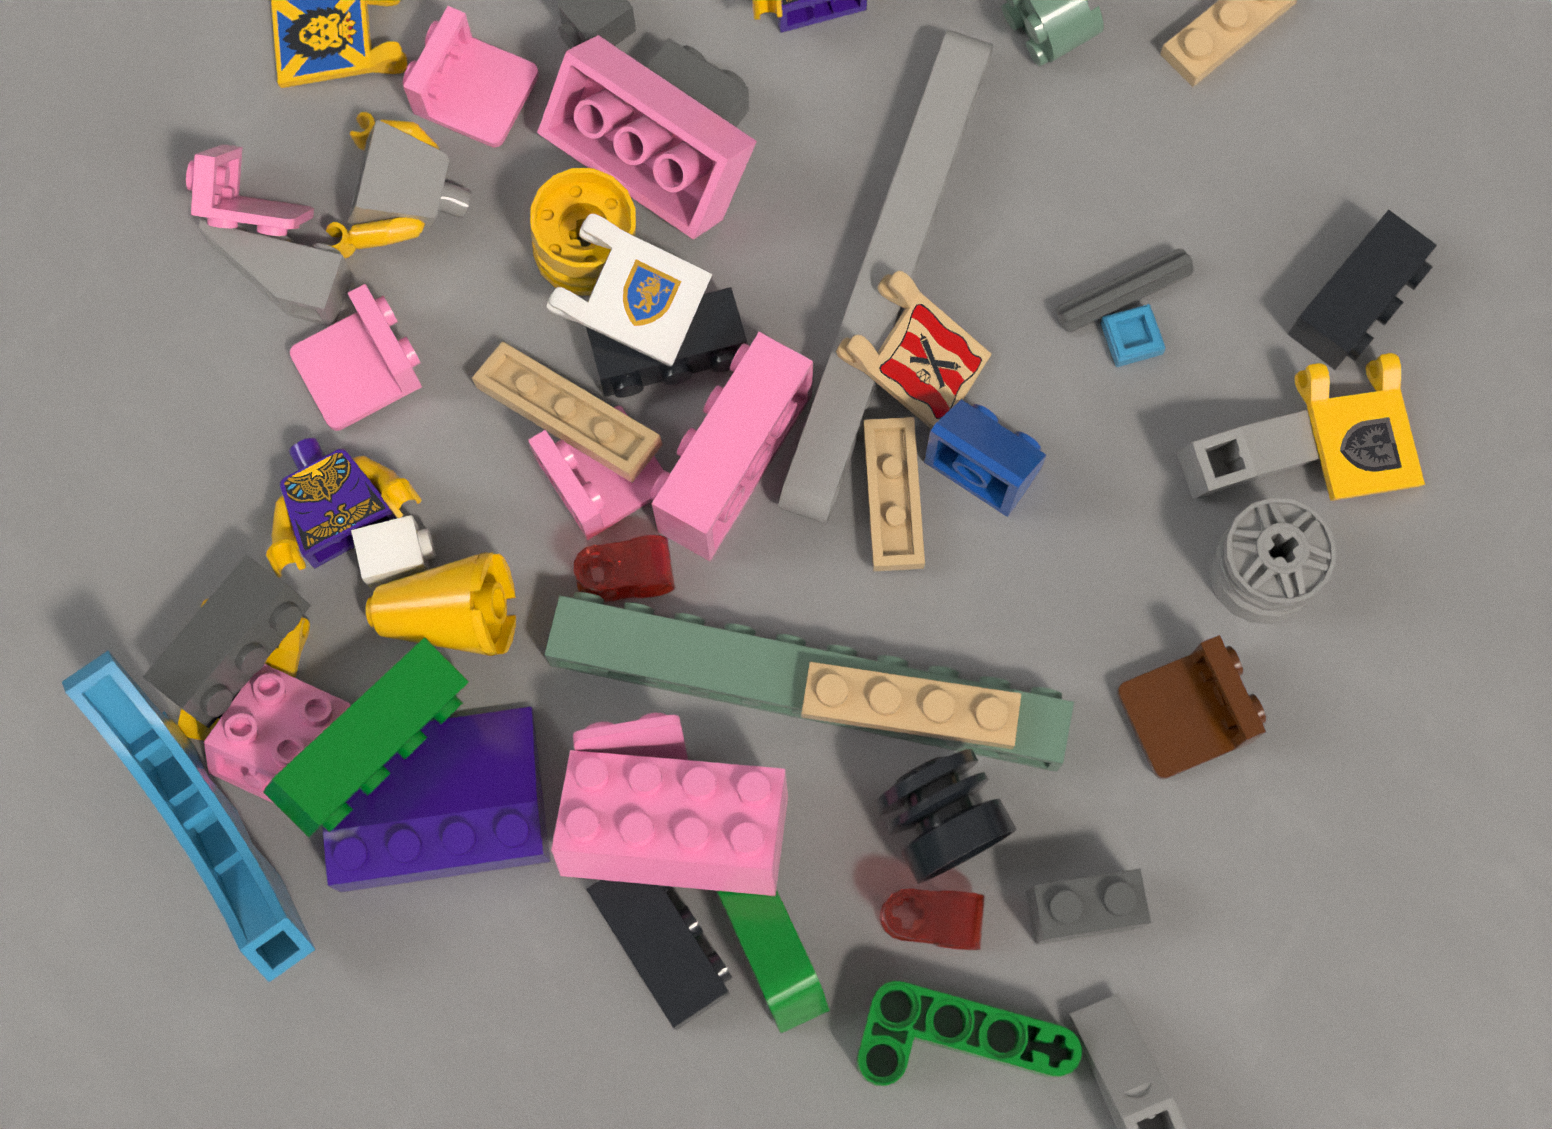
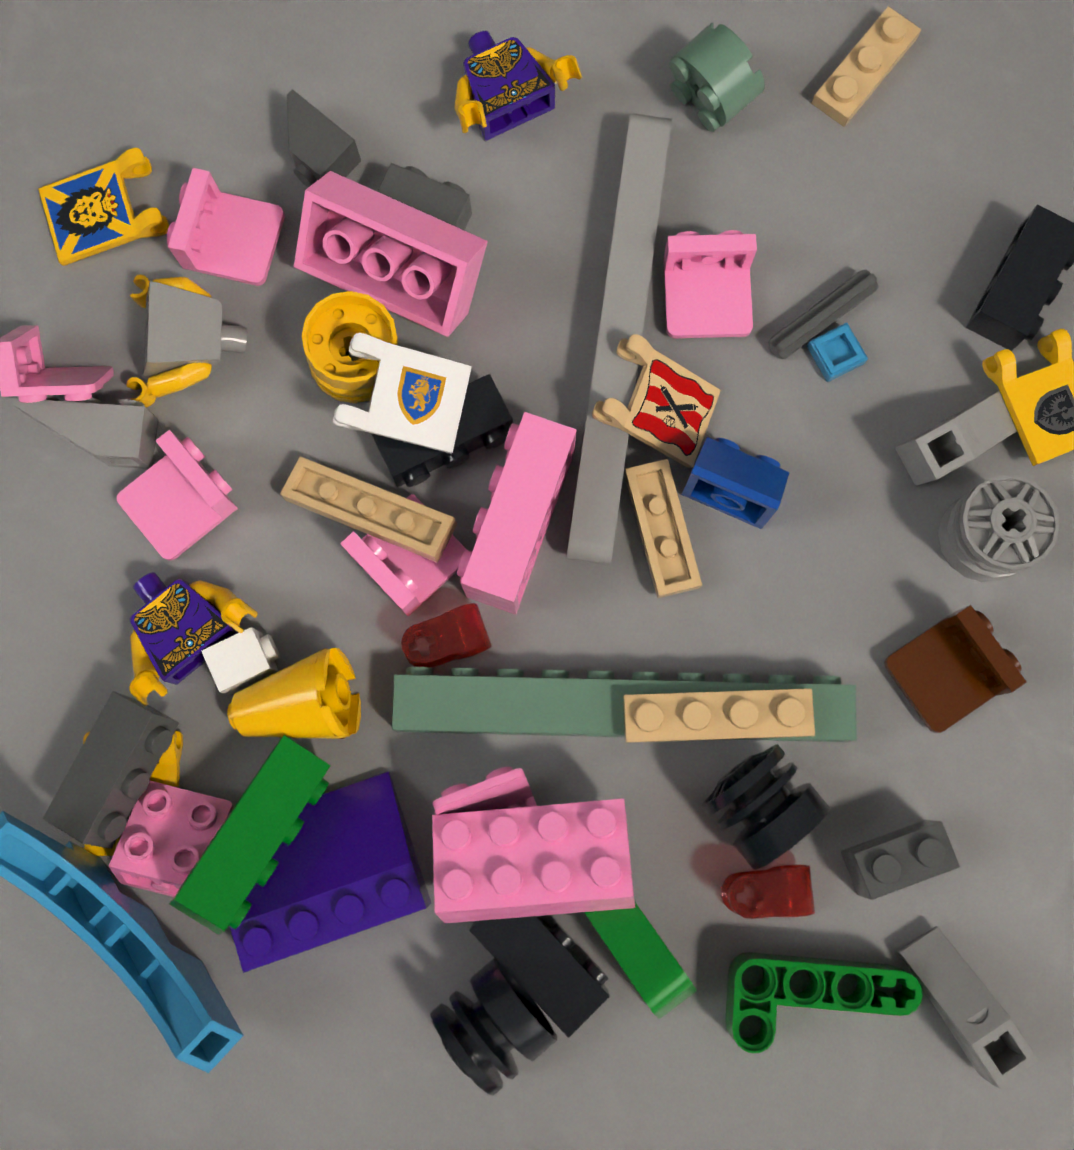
camera: 10 degrees left, 5 degrees up
(591, 998) = (486, 1031): none -> black wheel
(999, 234) = (708, 284): none -> bright pink bracket

